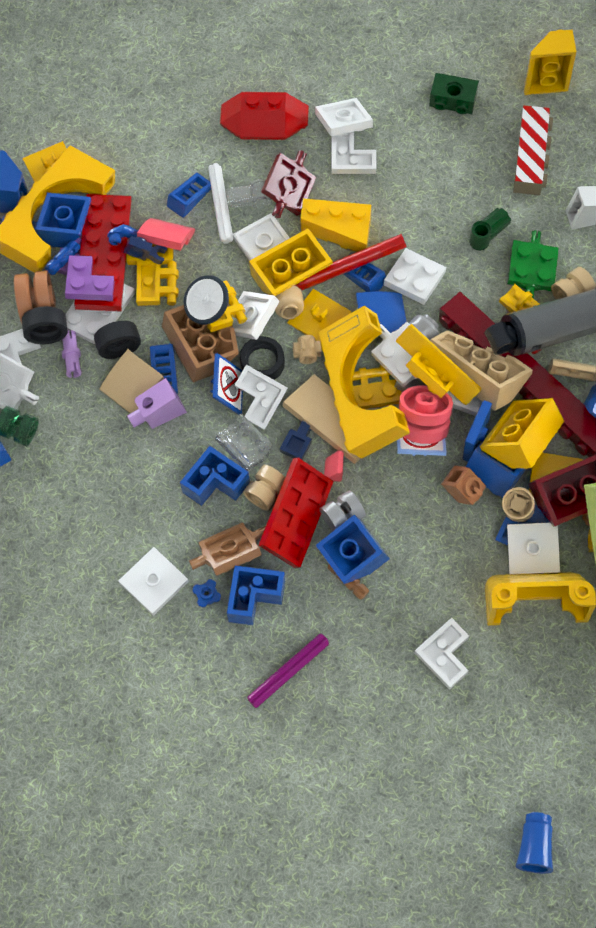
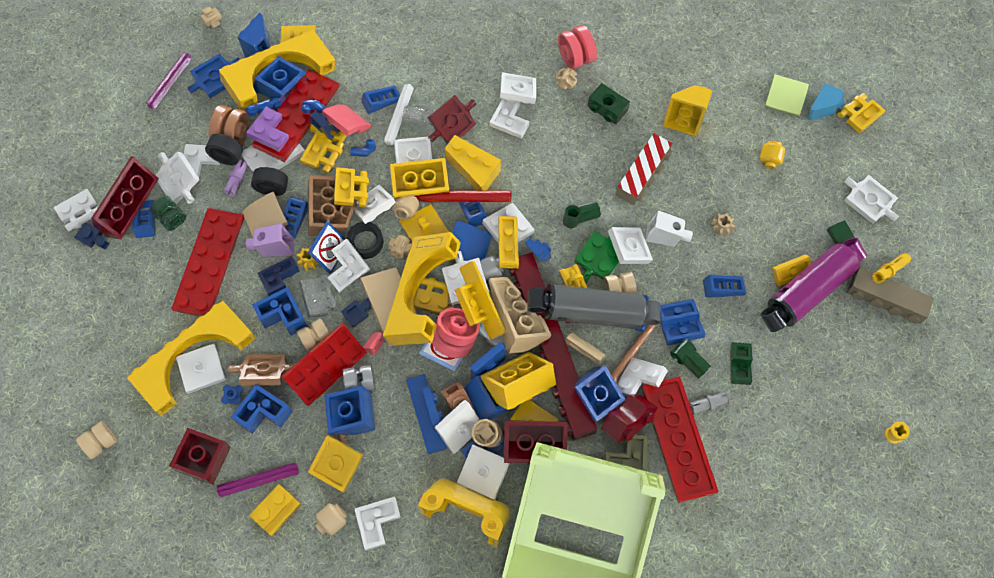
camera: 20 degrees right, 0 degrees up
(83, 706) = (94, 441): none -> tan wheel
(93, 462) = (208, 262): none -> red plate
(148, 523) = (153, 376): none -> yellow arch
(182, 441) = (273, 276): none -> dark blue plate
(205, 260) = (364, 151): none -> blue arm
(206, 299) = (339, 179): white wheel -> none
(210, 412) = (311, 263): none -> yellow gear
(212, 672) = (200, 456): none -> dark red brick
(264, 115) = (464, 64): red wedge -> none
(325, 693) = (275, 510): none -> yellow plate
(367, 612) = (335, 463): none -> yellow plate
(387, 43) = (577, 47): none -> coral wheel
(392, 84) = (566, 78): none -> tan gear
(395, 672) = (330, 519): none -> tan head
(428, 291) = (508, 242): none -> yellow tile
(437, 514) = (426, 412): none -> blue bracket
(466, 285) = (540, 249): none -> blue slope
(482, 512) = (457, 426): none -> white plate
(561, 239) = (630, 245): none -> white plate

